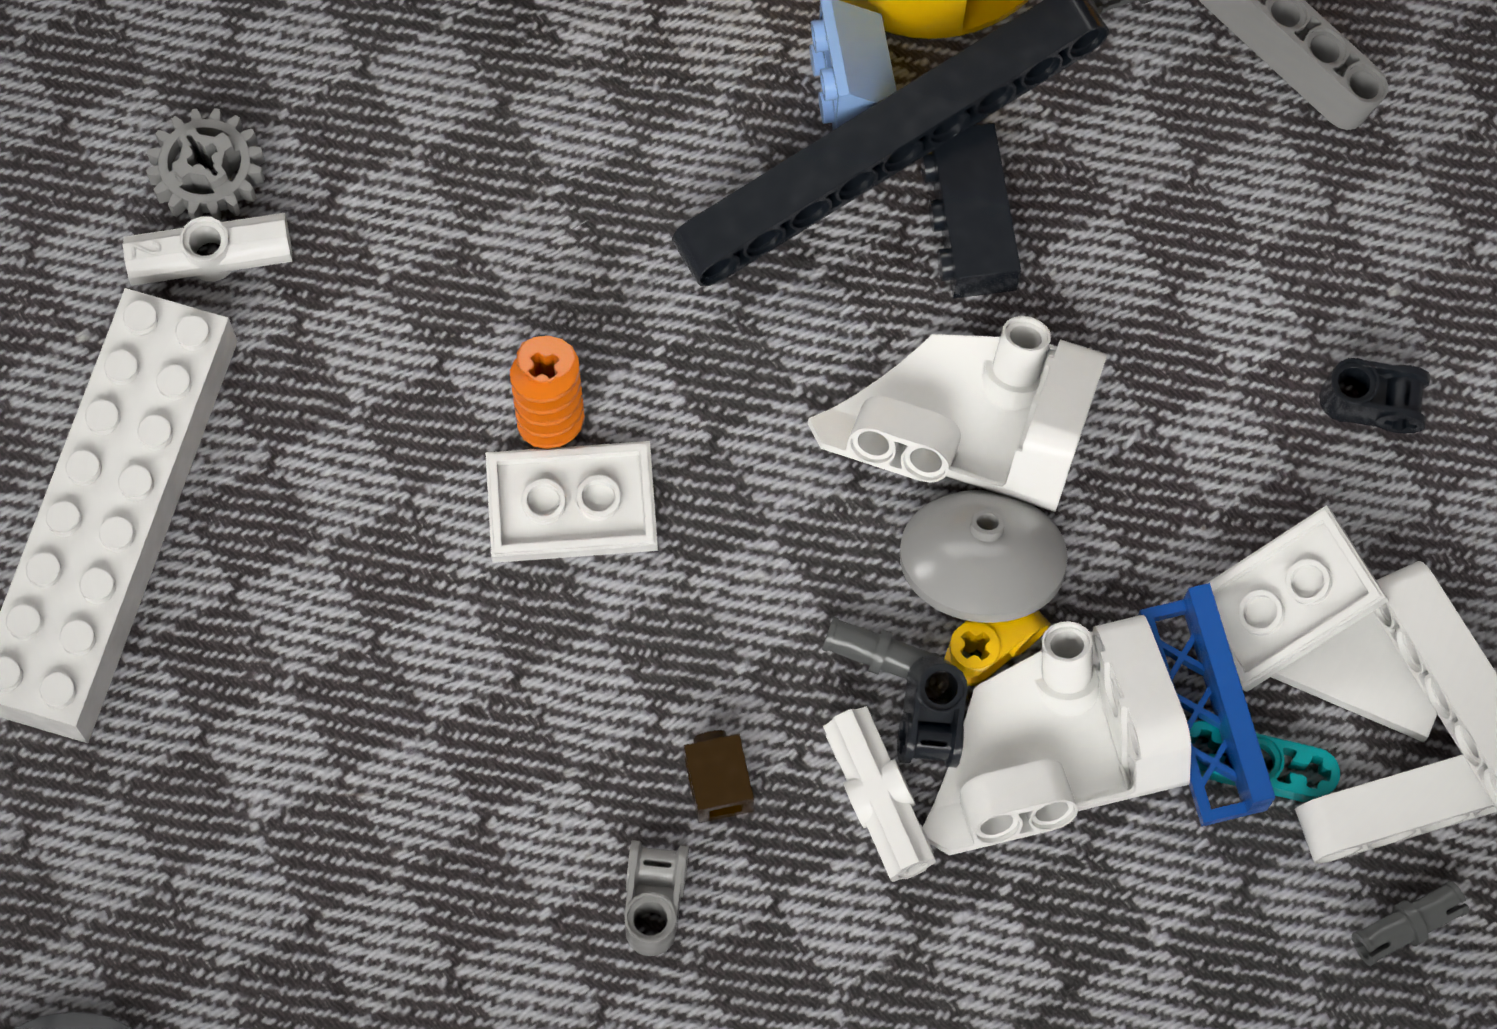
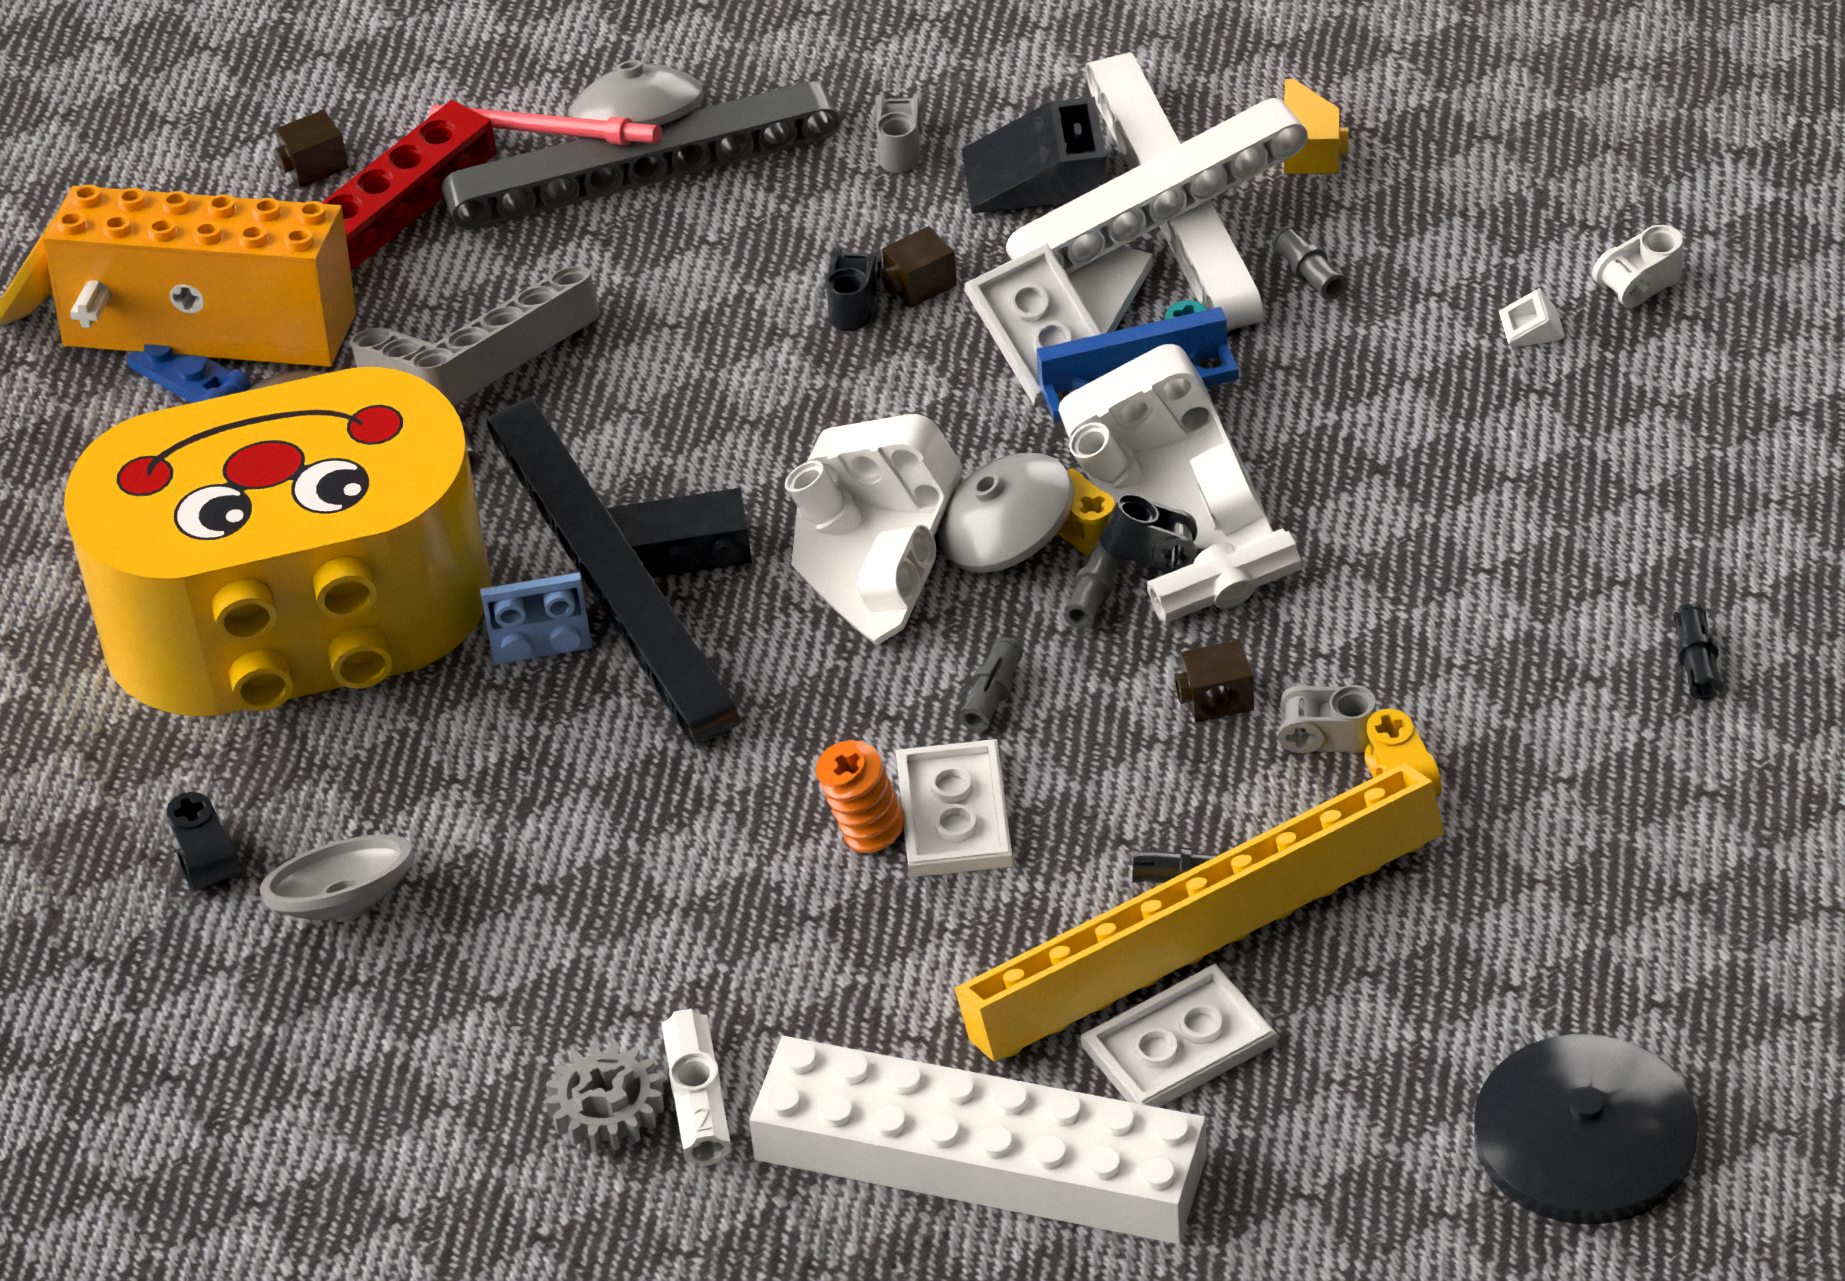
camera: 85 degrees left, 25 degrees down
(233, 720) = (1178, 1039): none -> white tile
(374, 748) = (1199, 912): none -> yellow brick
(454, 733) = (1164, 866): none -> black pin
(569, 972) = (1397, 742): none -> yellow piece
(700, 525) = (1000, 667): none -> dark grey pin
(1402, 467) = (918, 267): none -> dark brown brick

